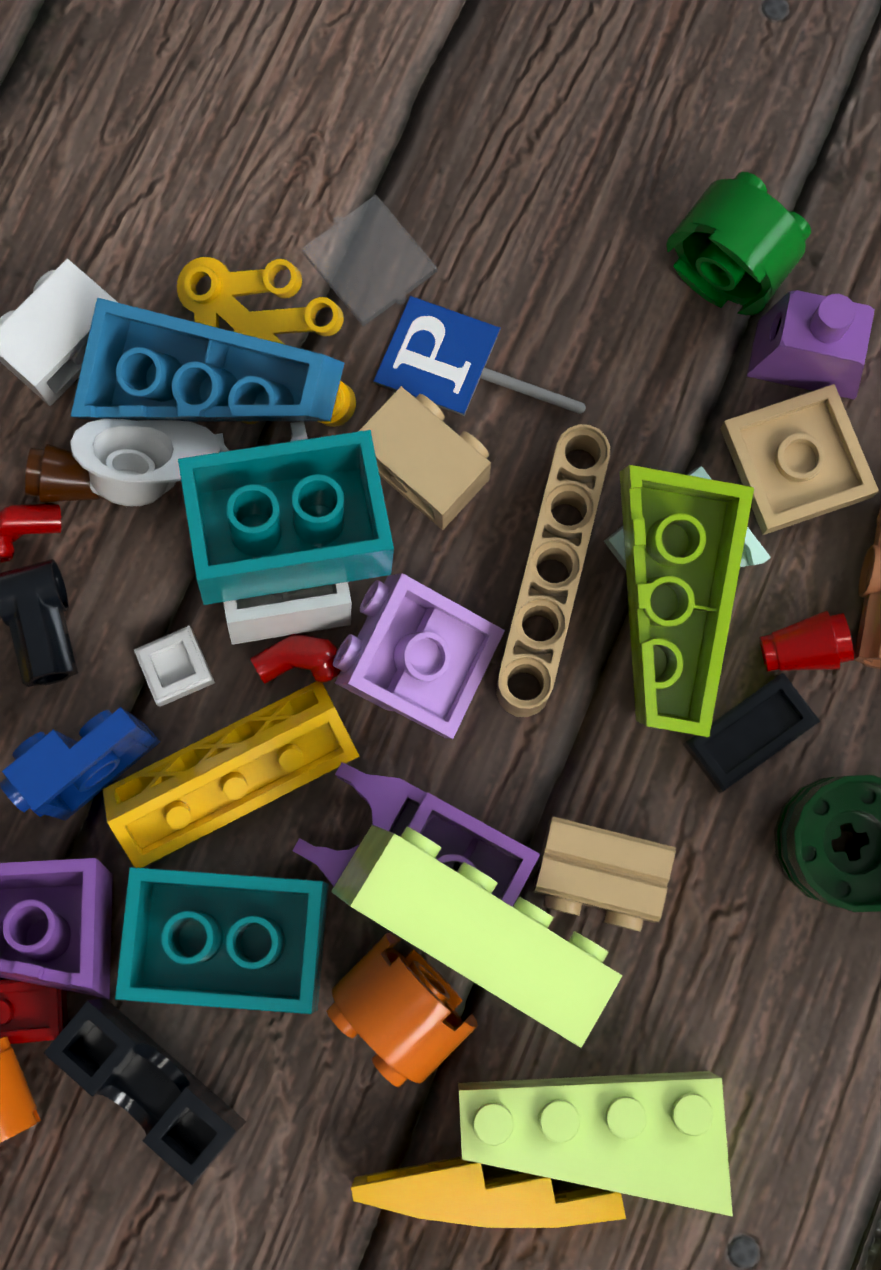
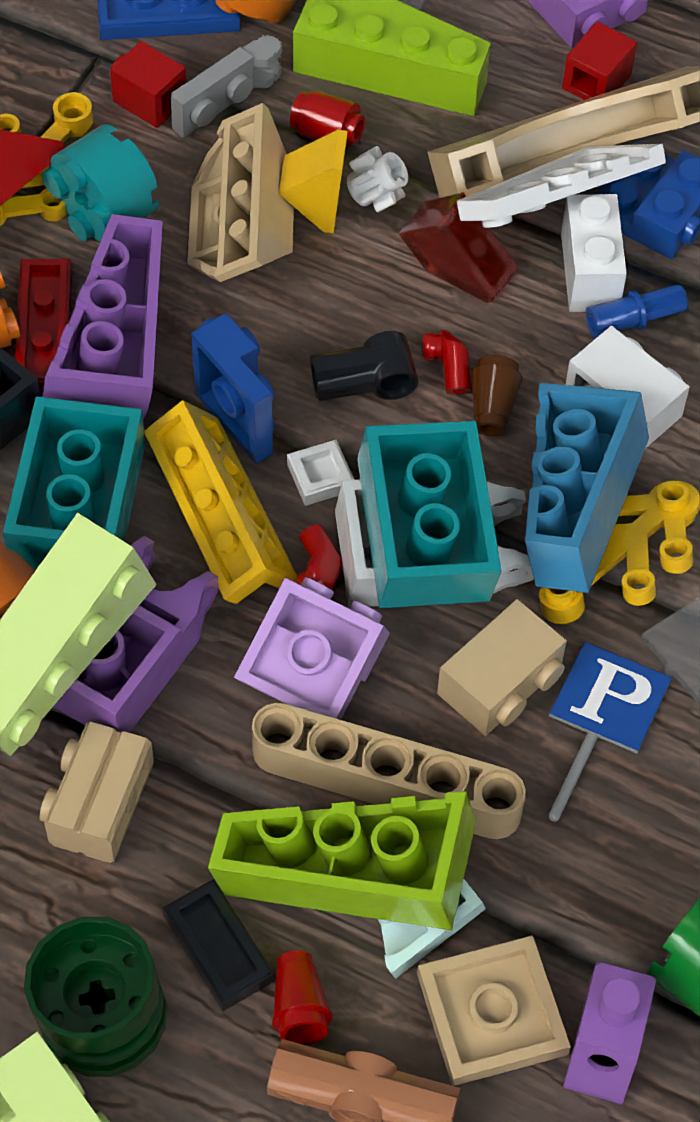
camera: 90 degrees right, 20 degrees down
(138, 459) = (506, 430): white piece -> none

